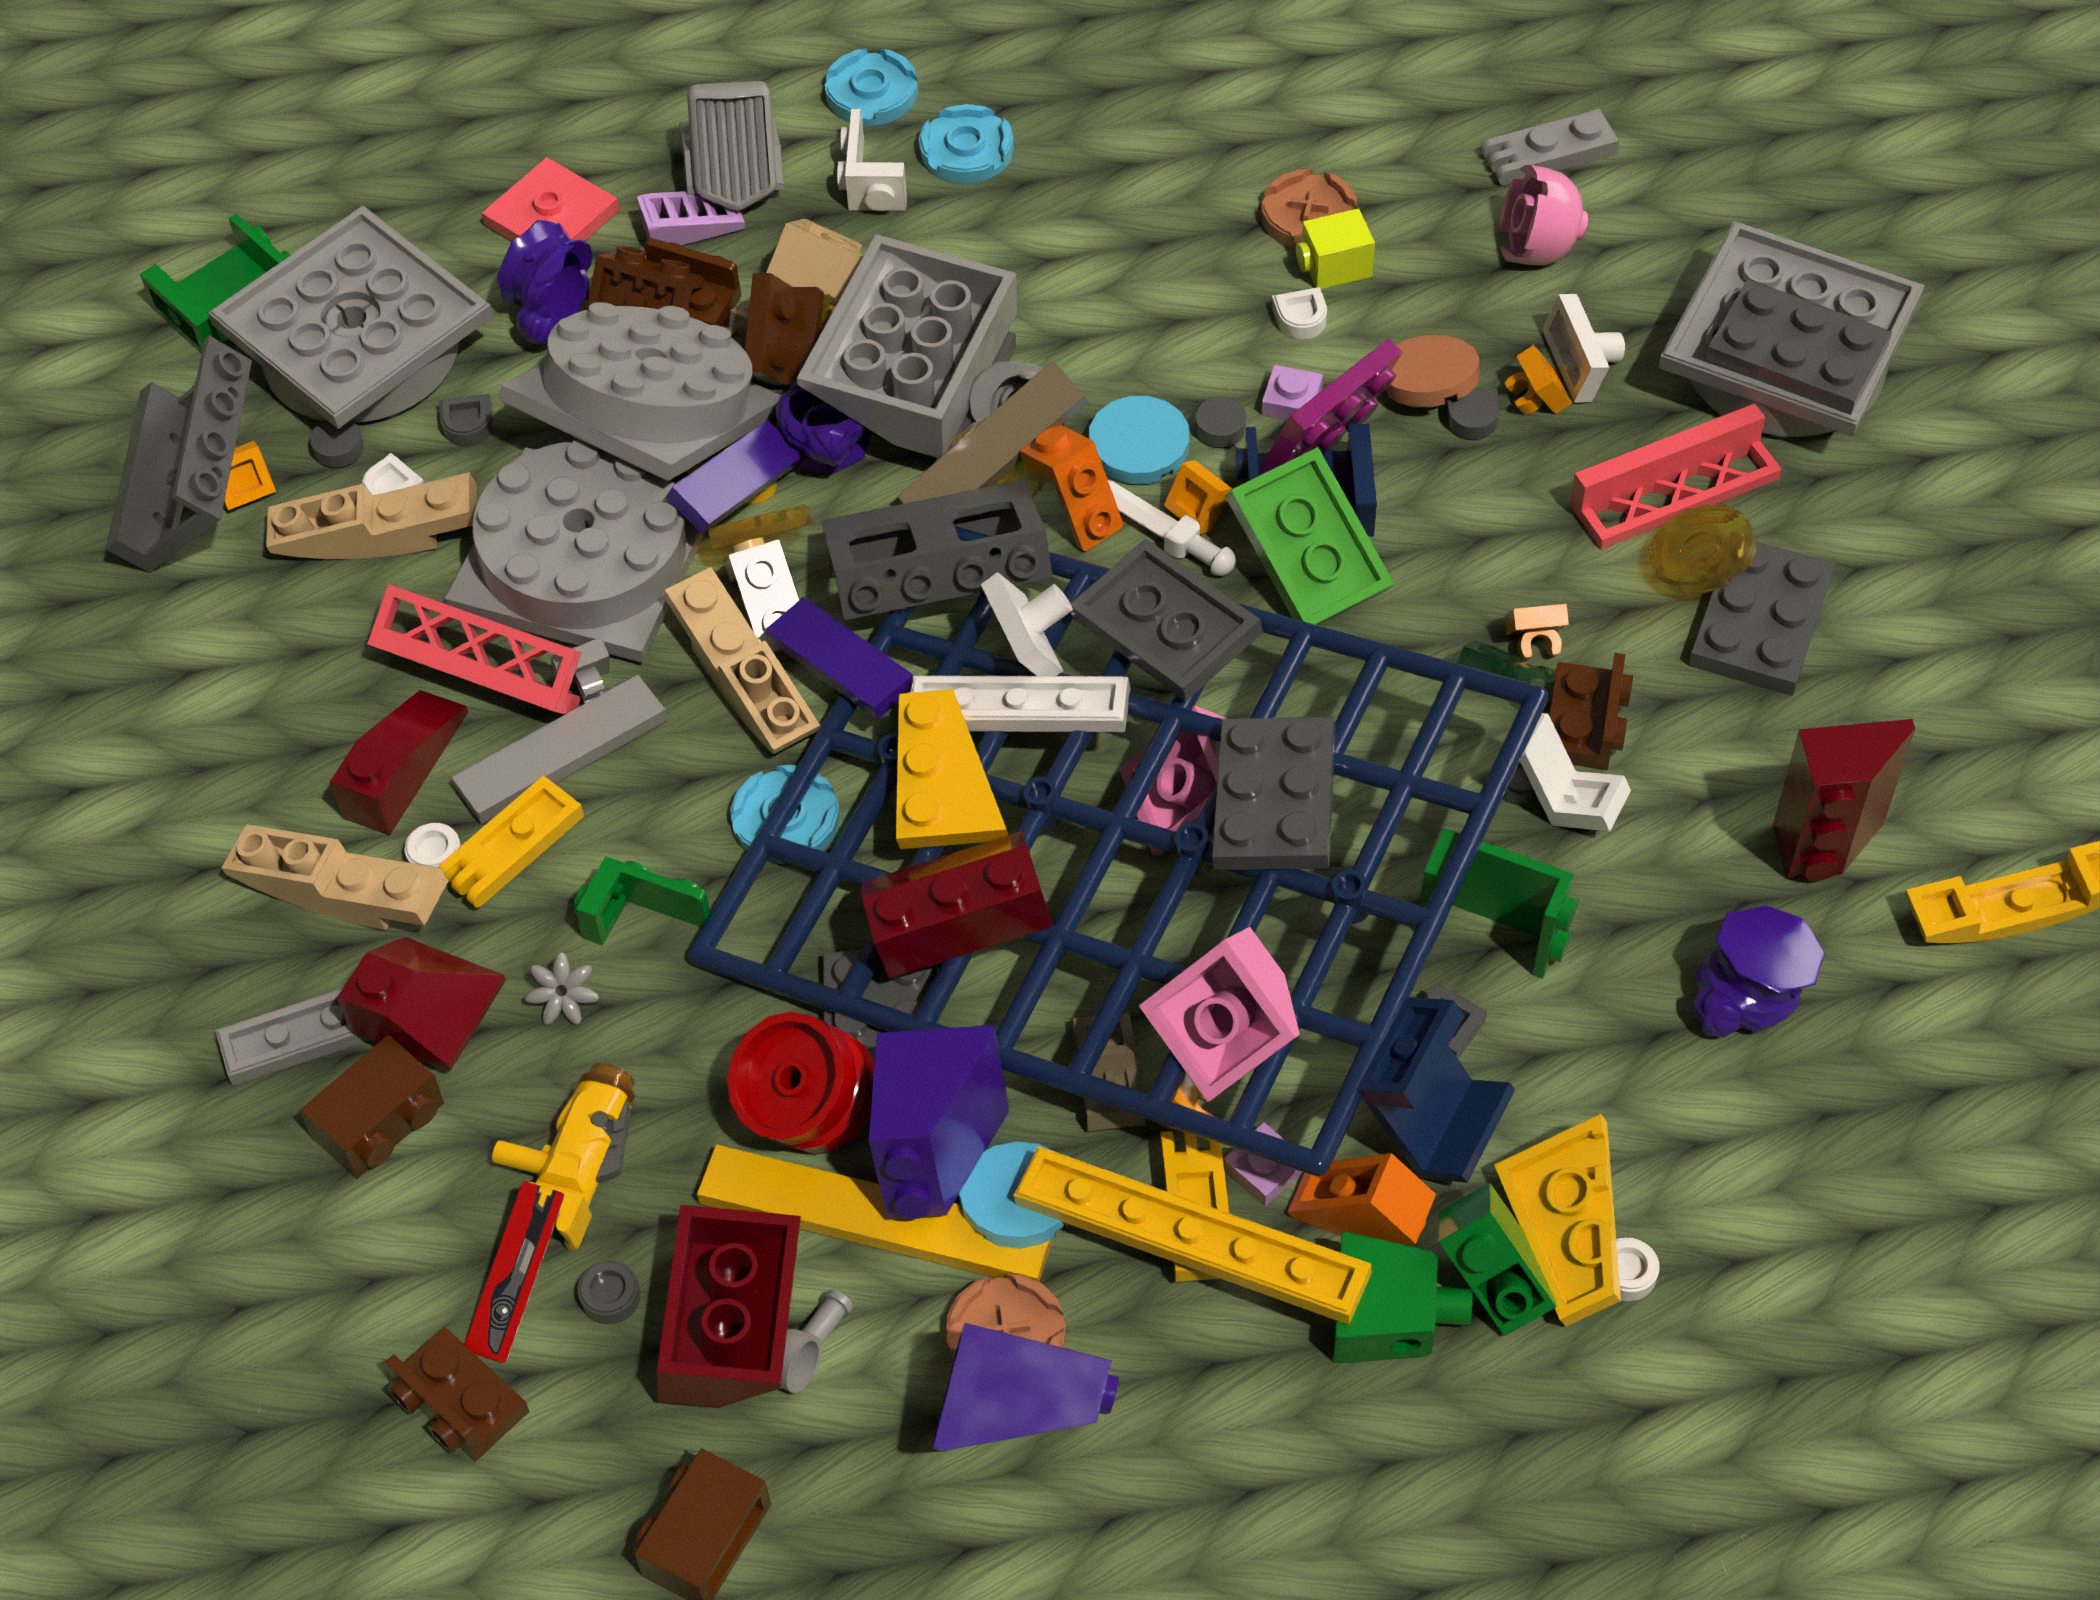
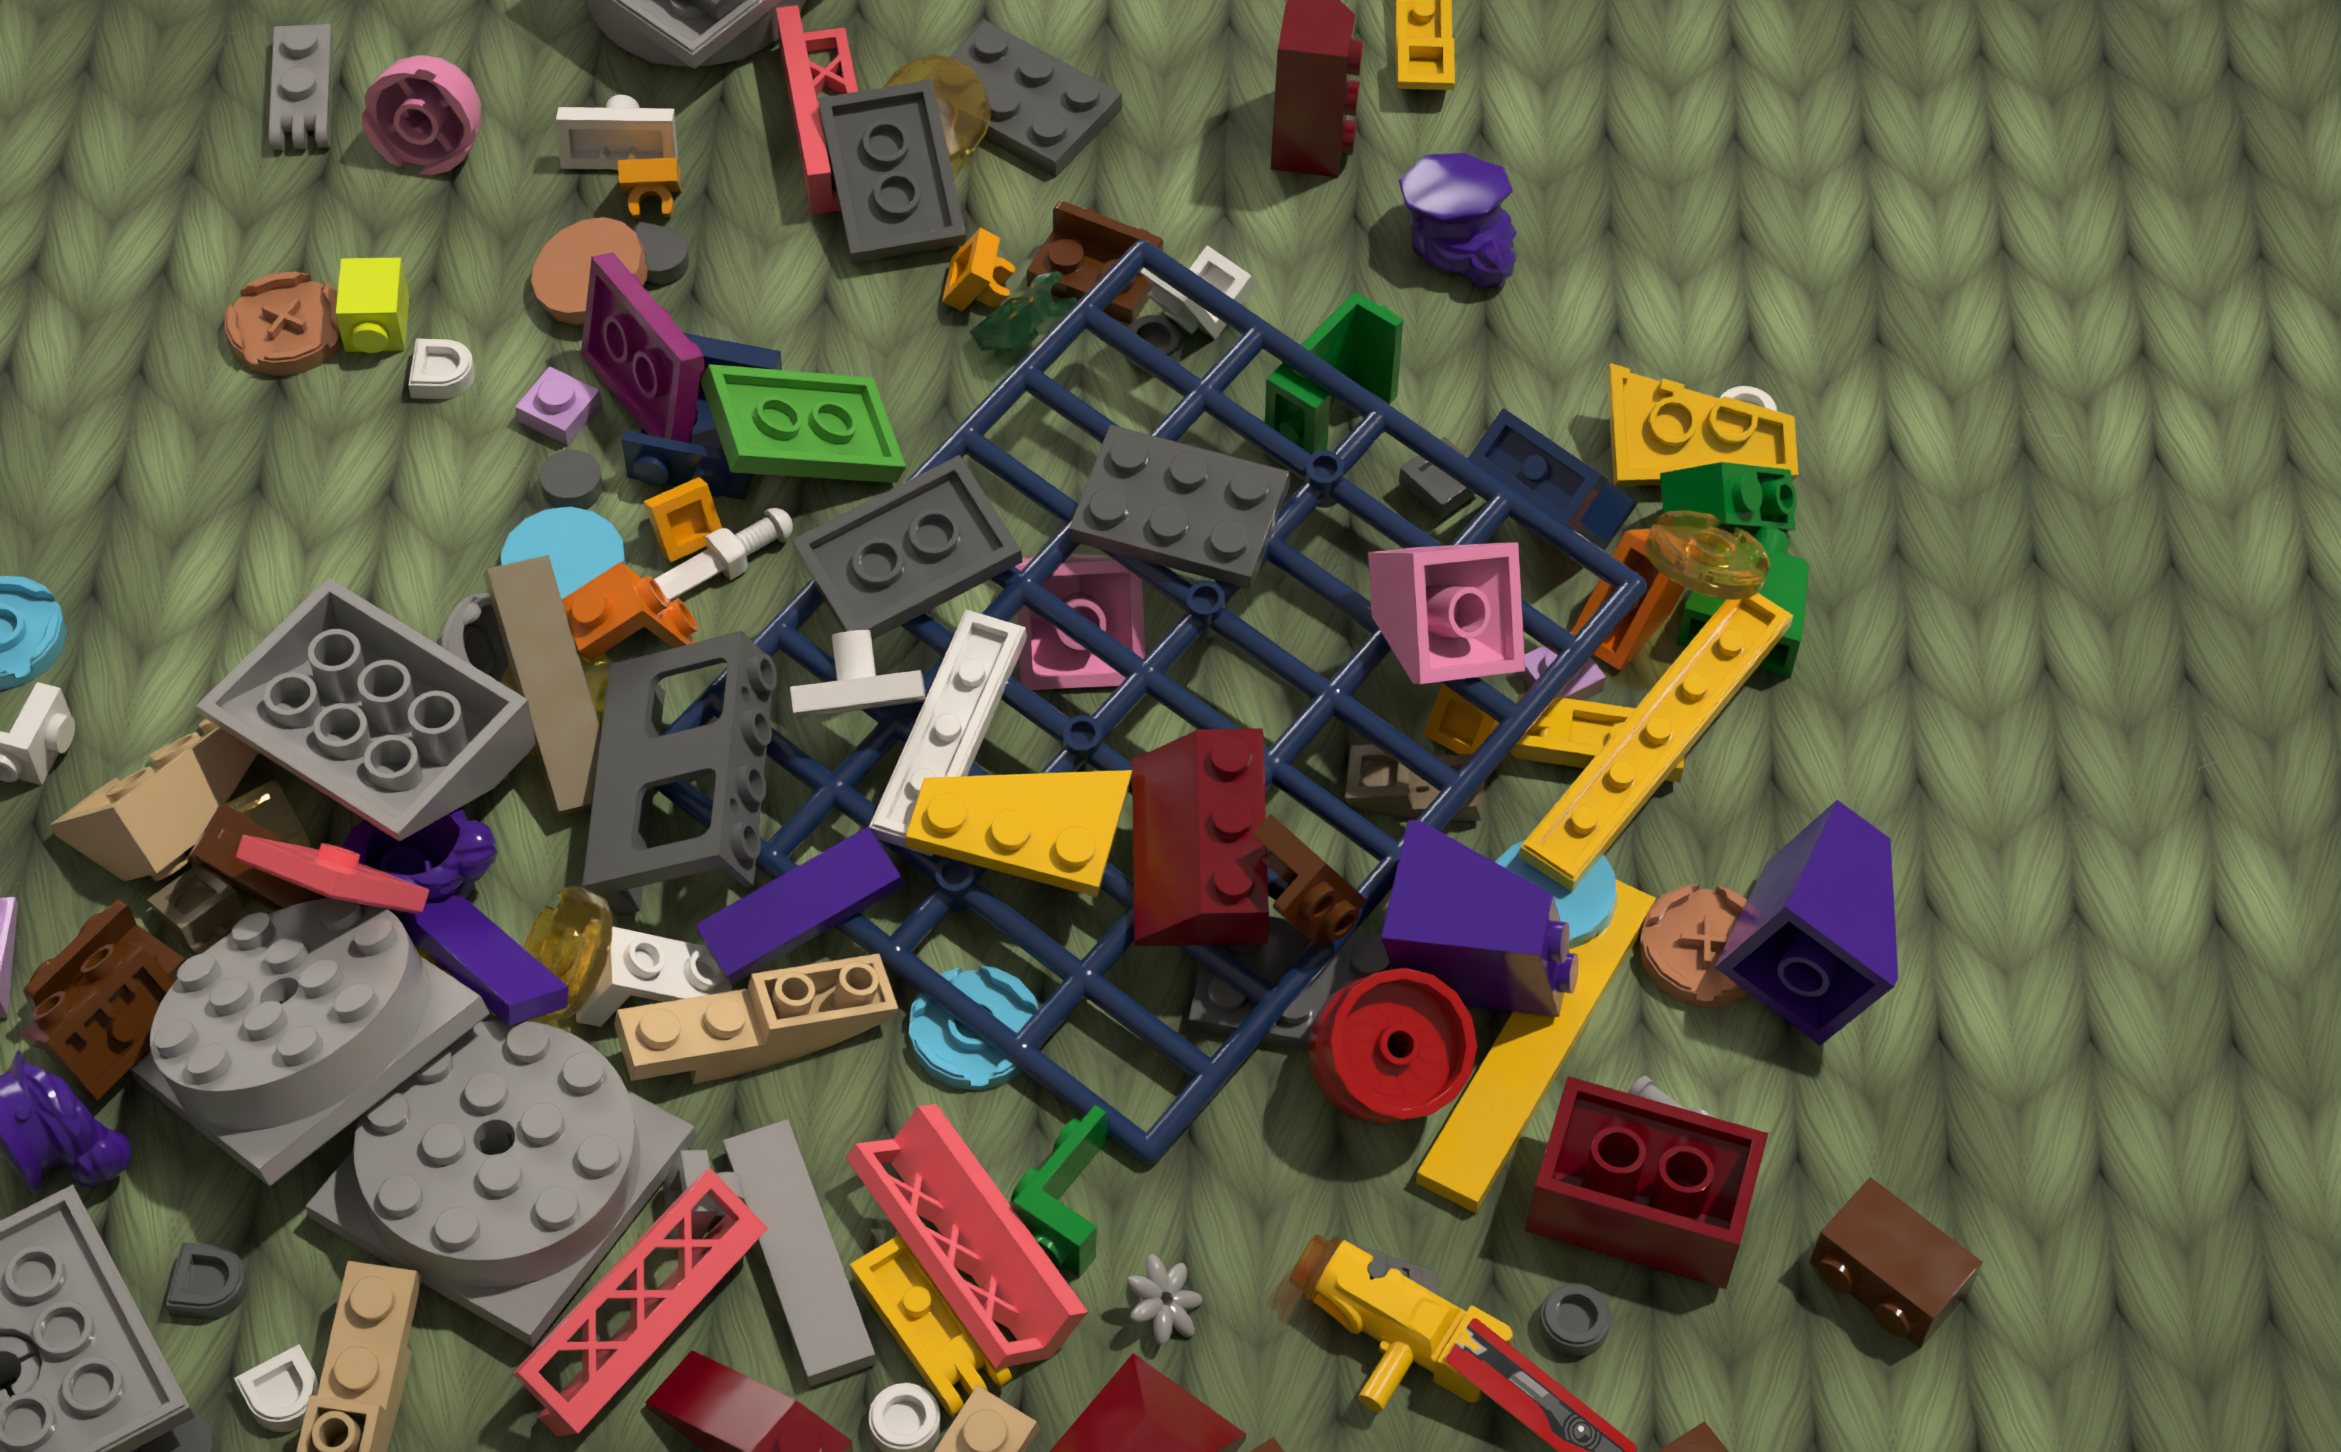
camera: 80 degrees left, 0 degrees up
(585, 860) = (977, 1236): none -> coral fence
(755, 354) = (332, 873): none -> coral plate
(915, 966) = (1317, 896): none -> reddish brown bracket
(1383, 1224) = (1706, 558): none -> clear yellow tile
(1615, 533) = (891, 171): none -> dark grey plate

